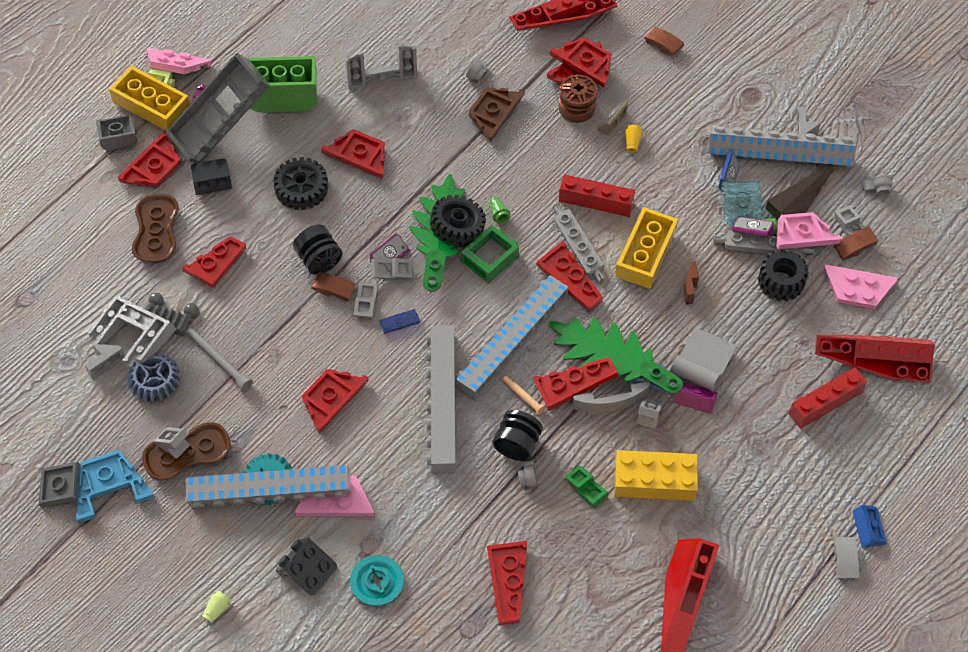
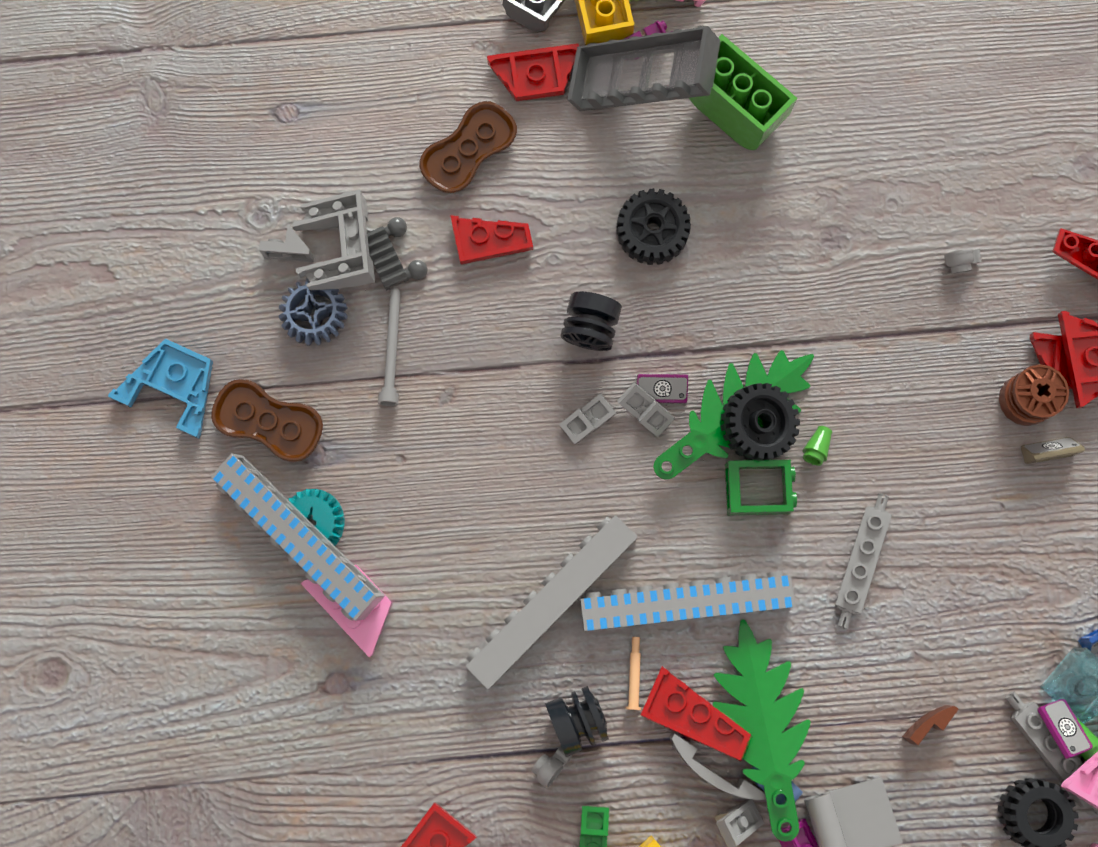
camera: 45 degrees right, 20 degrees up
(59, 484) = (129, 343): dark grey plate -> none
(172, 441) = (258, 400): light grey slope -> none
(211, 176) = (575, 136): black bracket -> none
(217, 605) = (144, 607): yellowish green cone -> none
(307, 565) = (256, 649): black bracket -> none
(330, 395) = (452, 491): red wing -> none
(331, 284) = (572, 373): copper slope -> none
(358, 151) = (746, 243): red wing -> none
(363, 577) = (286, 735): teal gear -> none
(399, 321) = (597, 474): clear blue piece -> none
(404, 69) = (887, 189): light grey wedge -> none
(493, 109) = (933, 322): reddish brown wing -> none
(562, 266) = (815, 582): red wing -> none
(596, 195) = (937, 528): red brick -> none
(633, 136) = (1046, 495): yellow cone -> none
(646, 248) = (925, 641): yellow brick -> none

